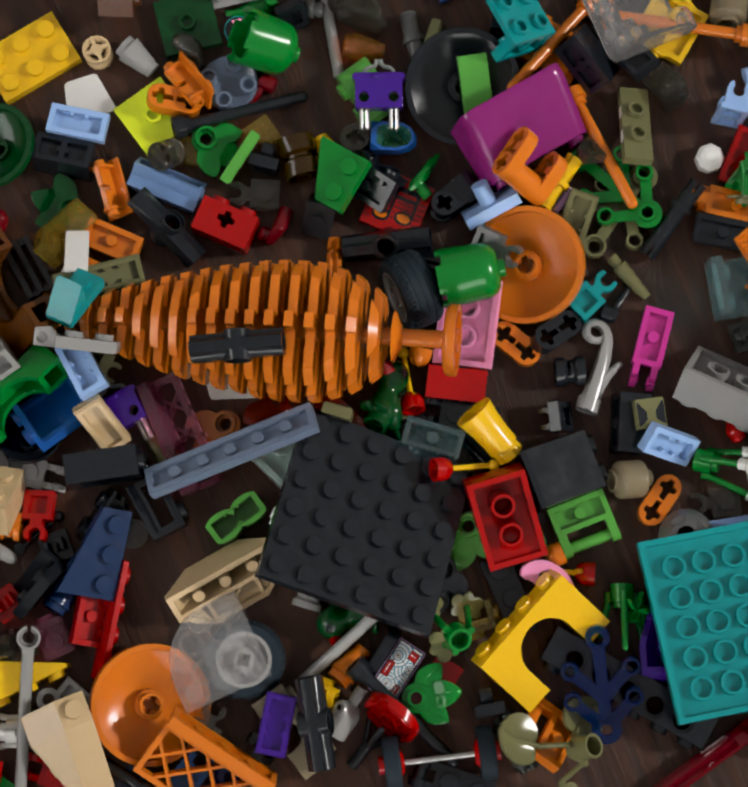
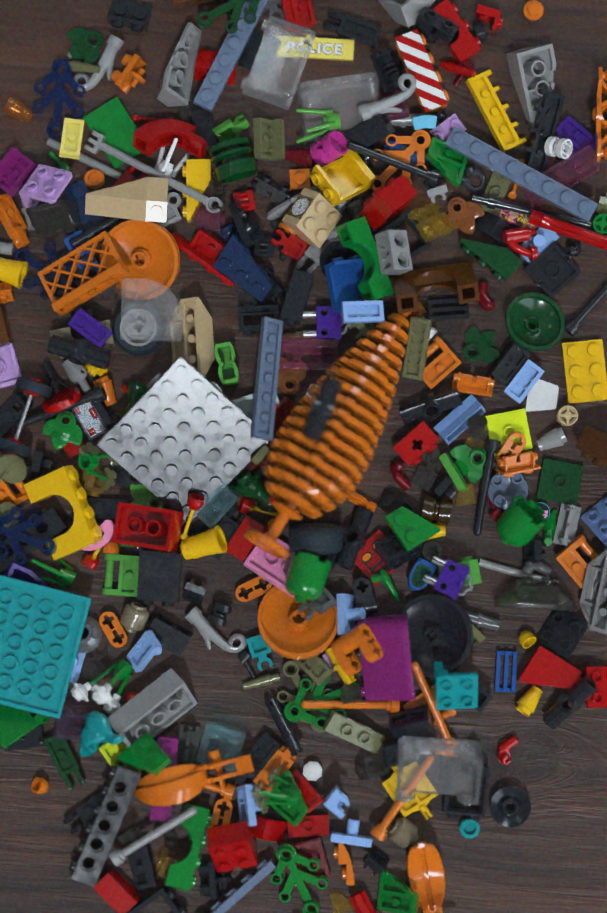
camera: 120 degrees right, 5 degrees up
(50, 239) = (460, 338): clear yellow bracket -> none
(73, 297) = (407, 326): teal slope -> none
(74, 340) = (377, 314): light grey hinge -> none
(76, 251) = (440, 342): white sticker -> none
(101, 423) = (323, 308): tan tile -> none
(190, 47) = (540, 475): clear smoke arm -> none
(339, 647) = (118, 386): light grey bar -> none
(358, 46) = (490, 584): clear orange cone -> none
(474, 80) = (429, 643): bright green tile -> none
(559, 337) = (243, 617): black beam -> none
(638, 610) = (52, 581): green plant -> none
(648, 410) = (169, 648): olive tile -> none
(651, 344) = (211, 673): dark pink hinge -> none

